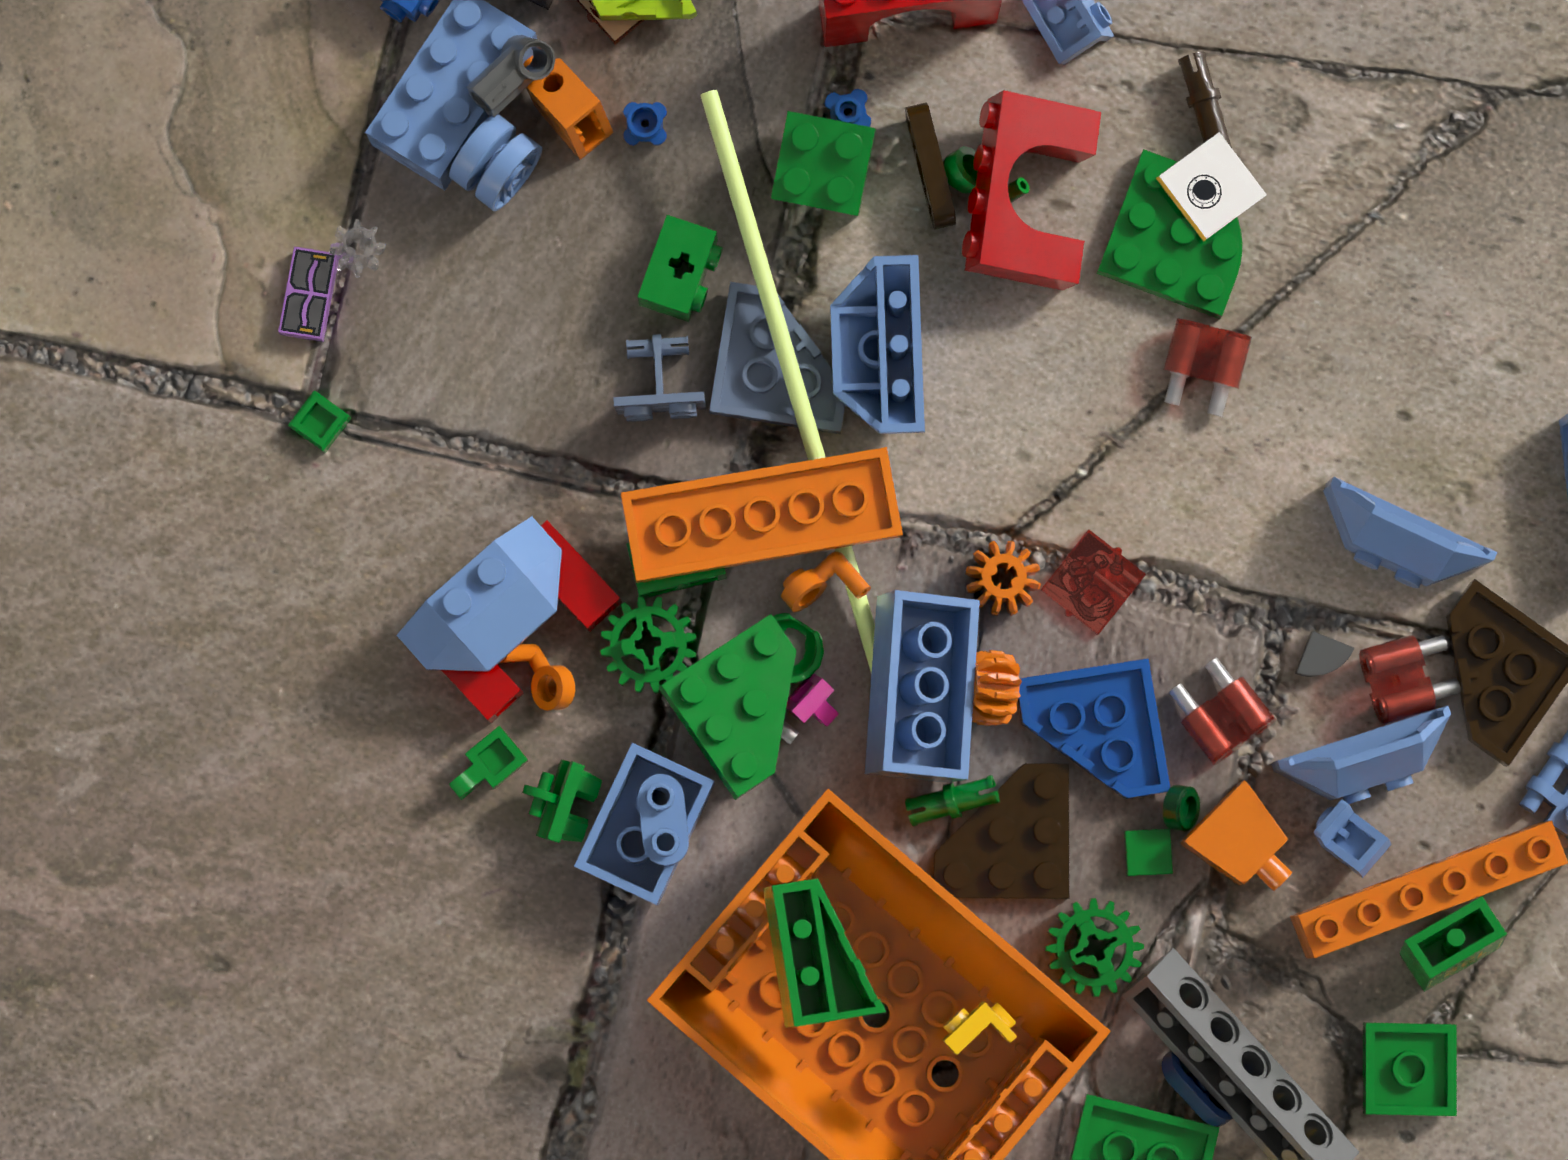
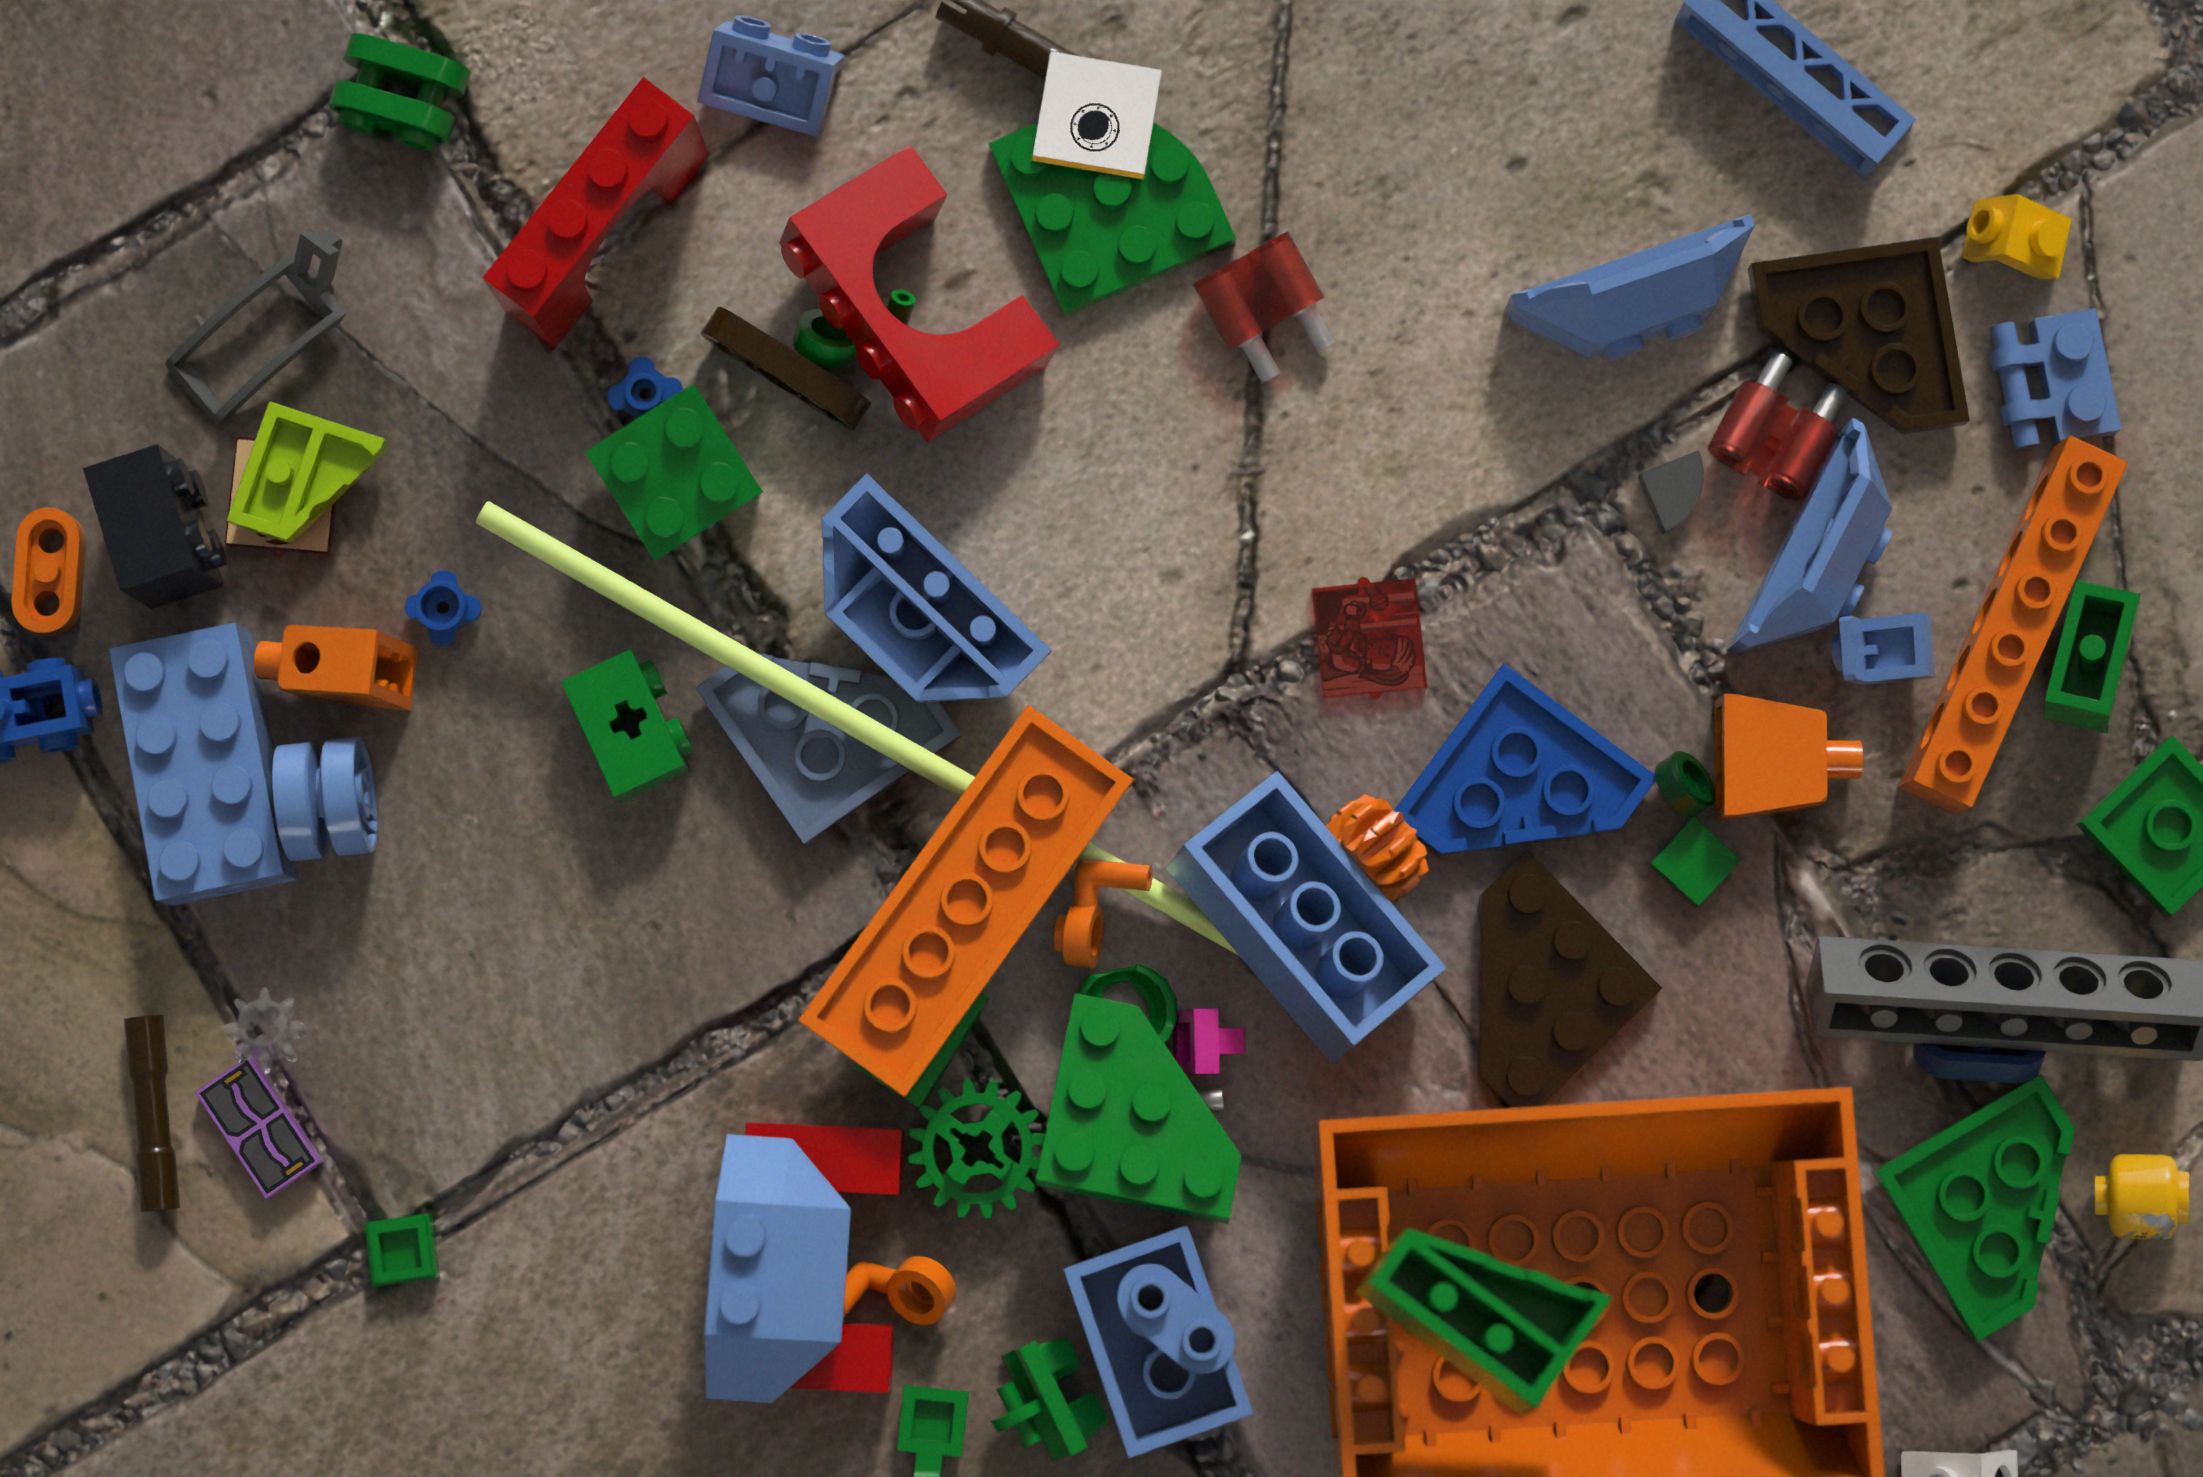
camera: 45 degrees left, 0 degrees up
(246, 258) = (155, 1152): none -> dark brown piece
(507, 75) = (252, 696): dark grey piece -> none
(677, 404) = (731, 908): sand blue plate -> none
(952, 800) = (1446, 1004): green pin -> none
(966, 1026) = (1705, 1229): yellow bracket -> none
(1016, 585) = (1296, 721): orange gear -> none
(1102, 967) = (1763, 1024): green gear -> none
(1225, 720) = (1642, 647): clear red piece -> none

